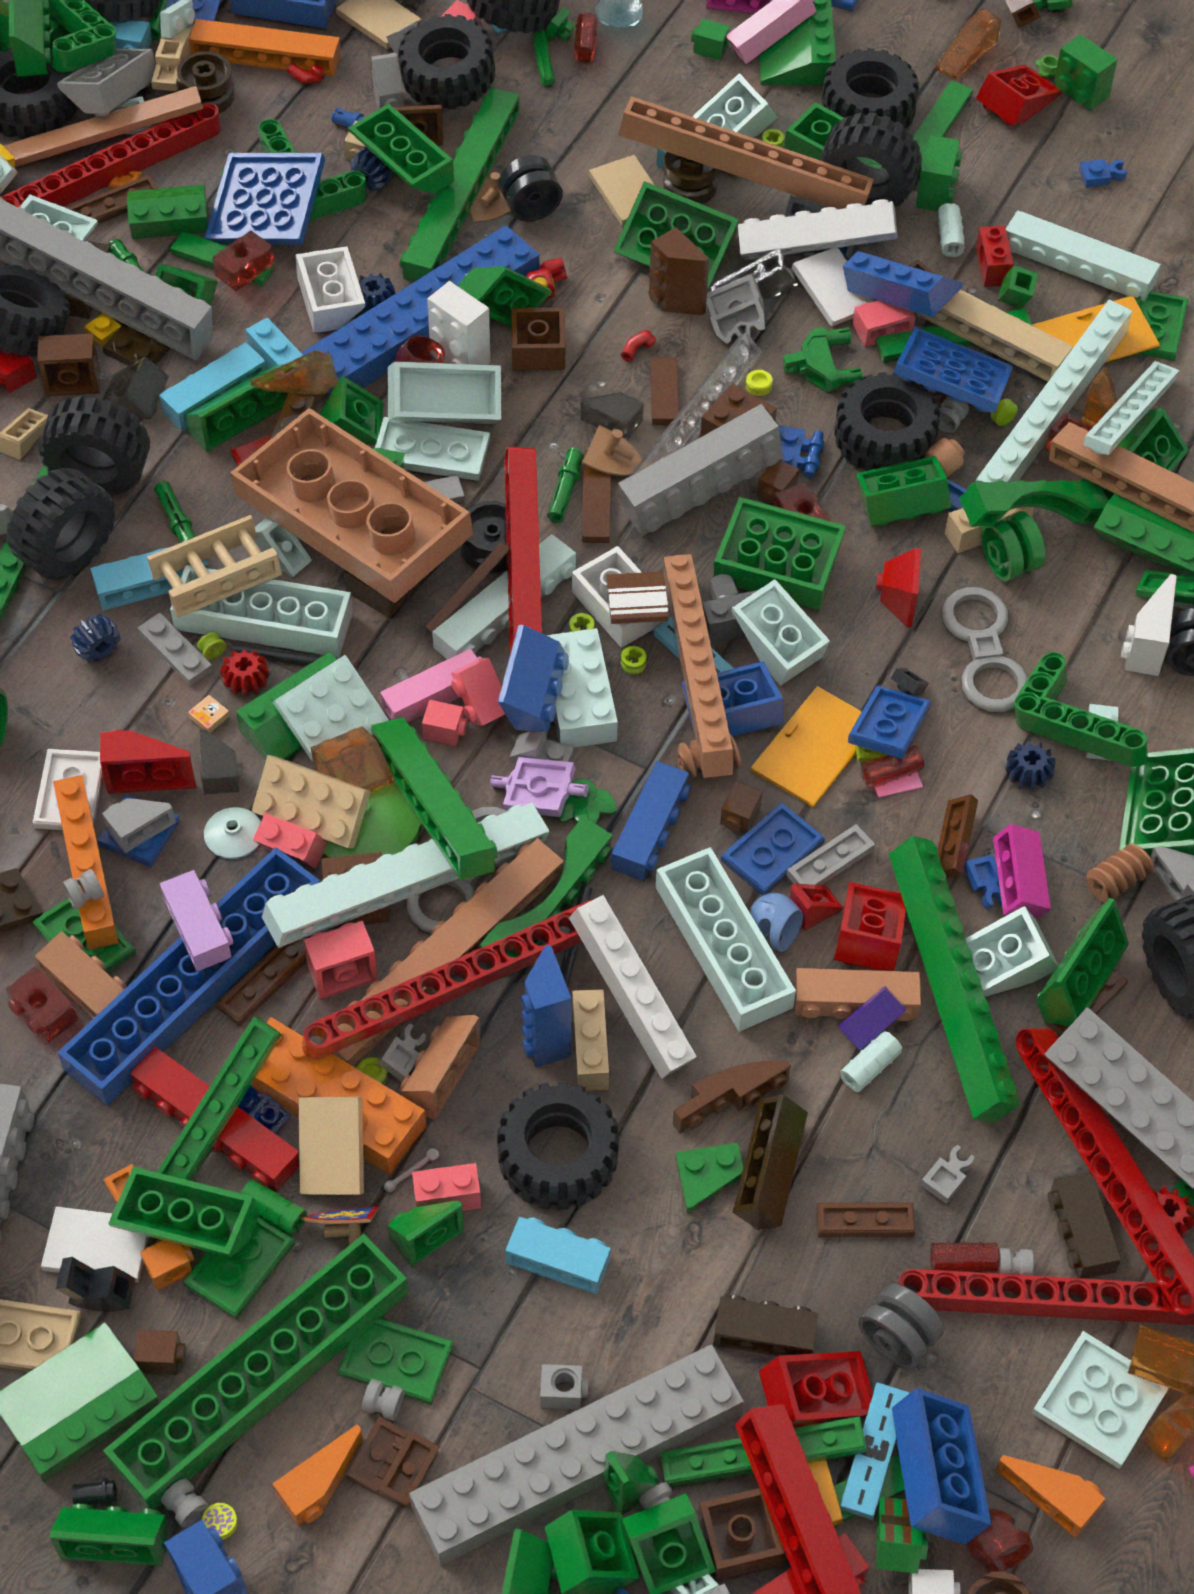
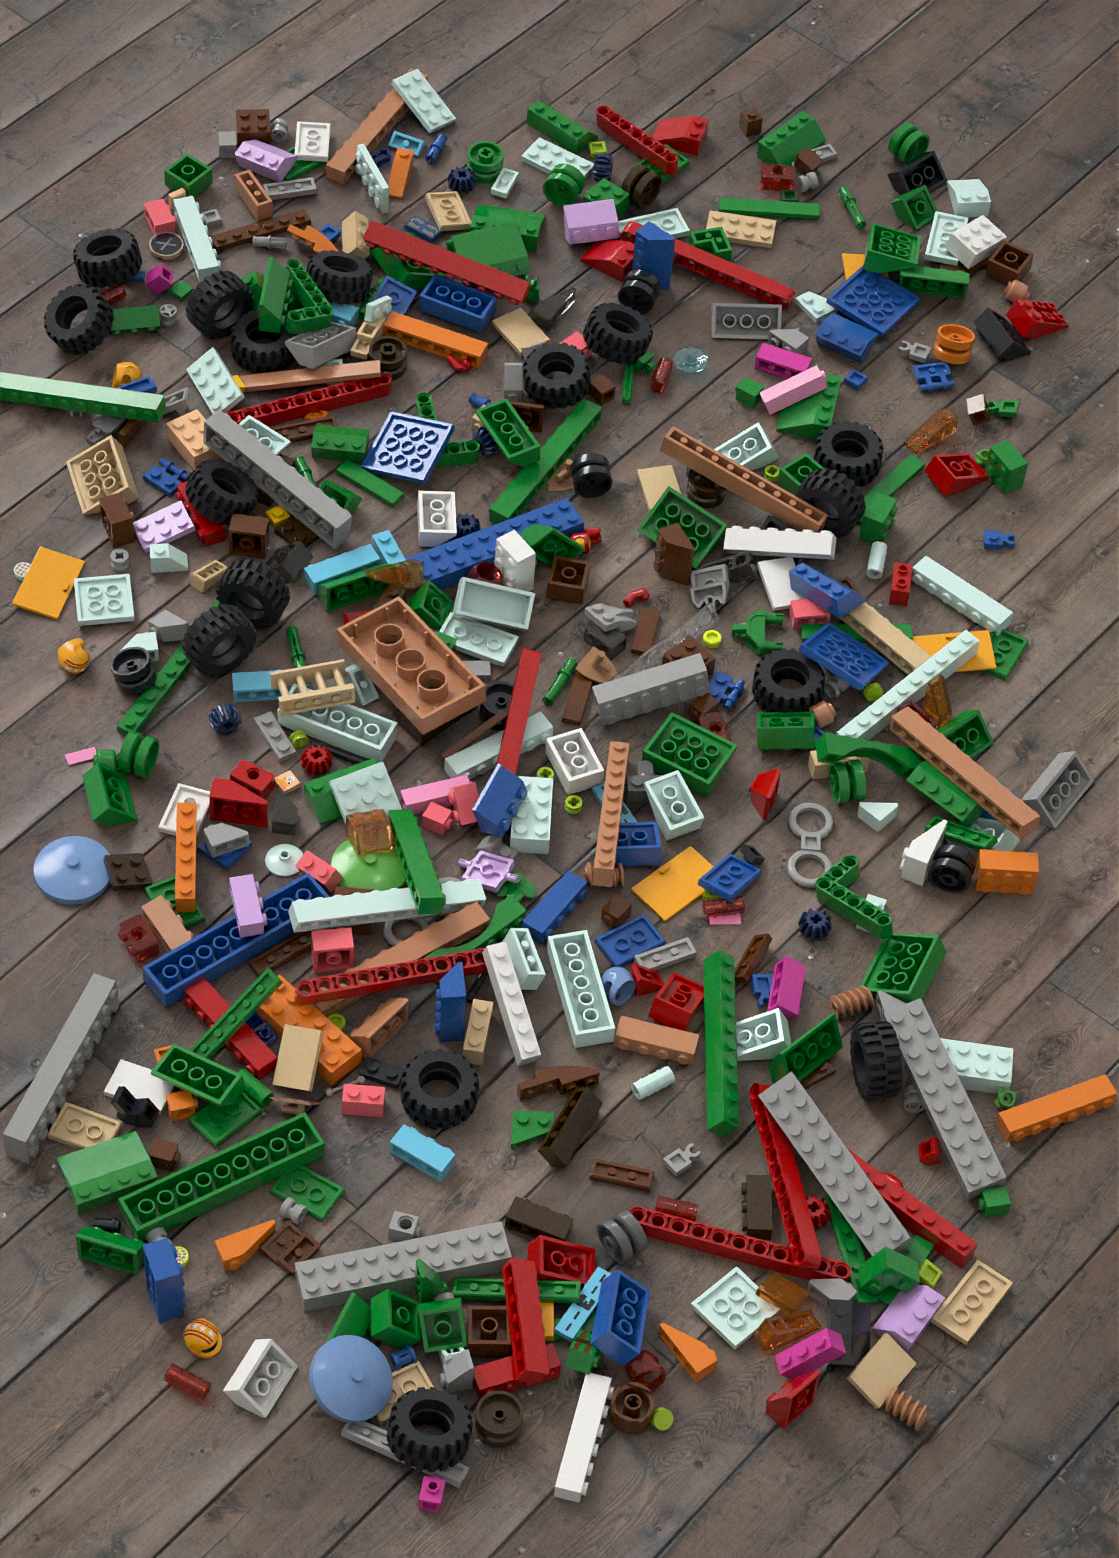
camera: 10 degrees right, 5 degrees down
(89, 886) = (184, 873): light grey wheel -> none
(144, 712) = (253, 778): none -> red brick
(243, 260) = (382, 487): clear red brick -> none
(311, 801) = (338, 849): tan plate -> none
(400, 1054) = (356, 1015): light grey plate -> none
(425, 1229) = (345, 1120): green slope -> none
(462, 1136) = (381, 1072): none -> black plate
(511, 71) = (602, 389): none -> reddish brown brick
(612, 379) = (611, 617): none -> light grey plate
(631, 907) = (524, 958): none -> light aqua brick
(637, 597) = (583, 763): slope -> none
(872, 1017) = (661, 1056): dark purple tile -> none
(1017, 1264) = (708, 1219): light grey wheel -> none
(1018, 287) = (909, 608): green brick -> none
(1064, 585) = (877, 814): none -> light aqua slope
(1130, 408) = (955, 705): light aqua plate -> none

